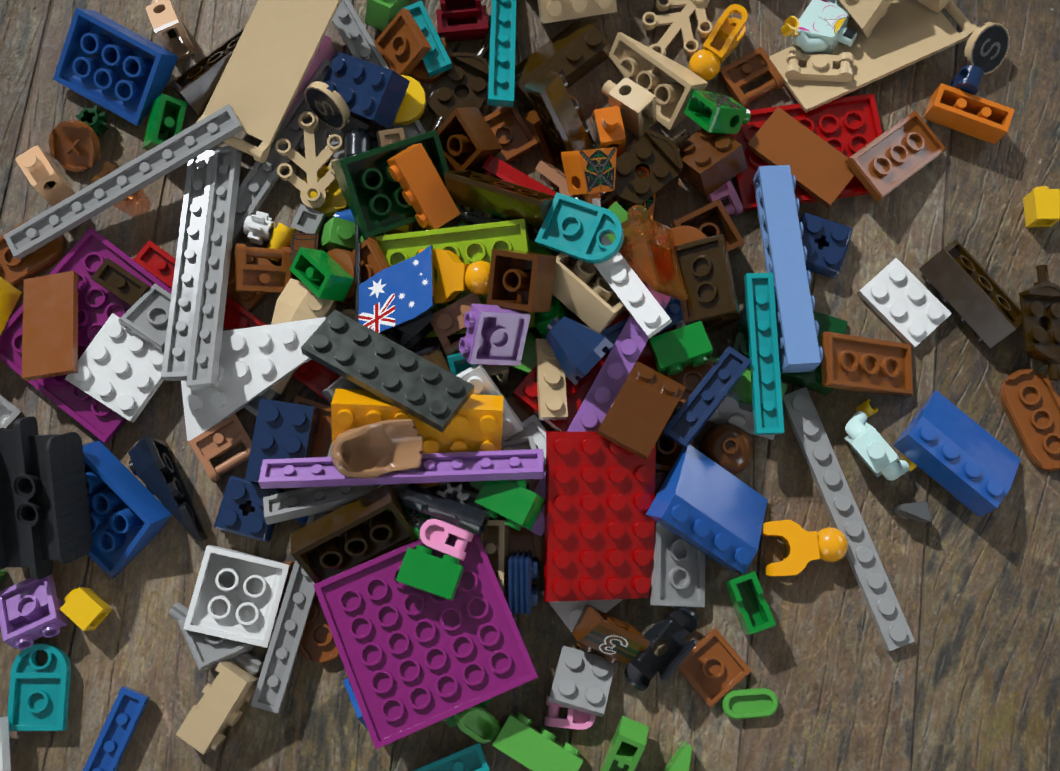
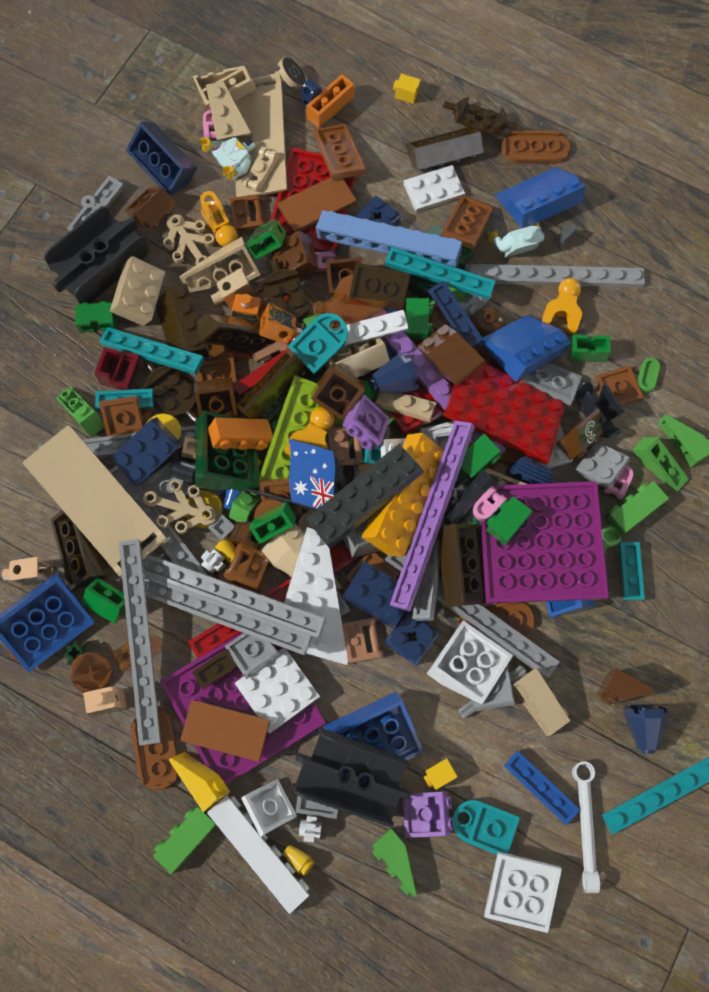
camera: 70 degrees left, 5 degrees down
(158, 471) = (361, 690): black wedge -> none
(327, 105) = (148, 478): tile -> none
(378, 449) = (417, 519): medium nougat hair -> none

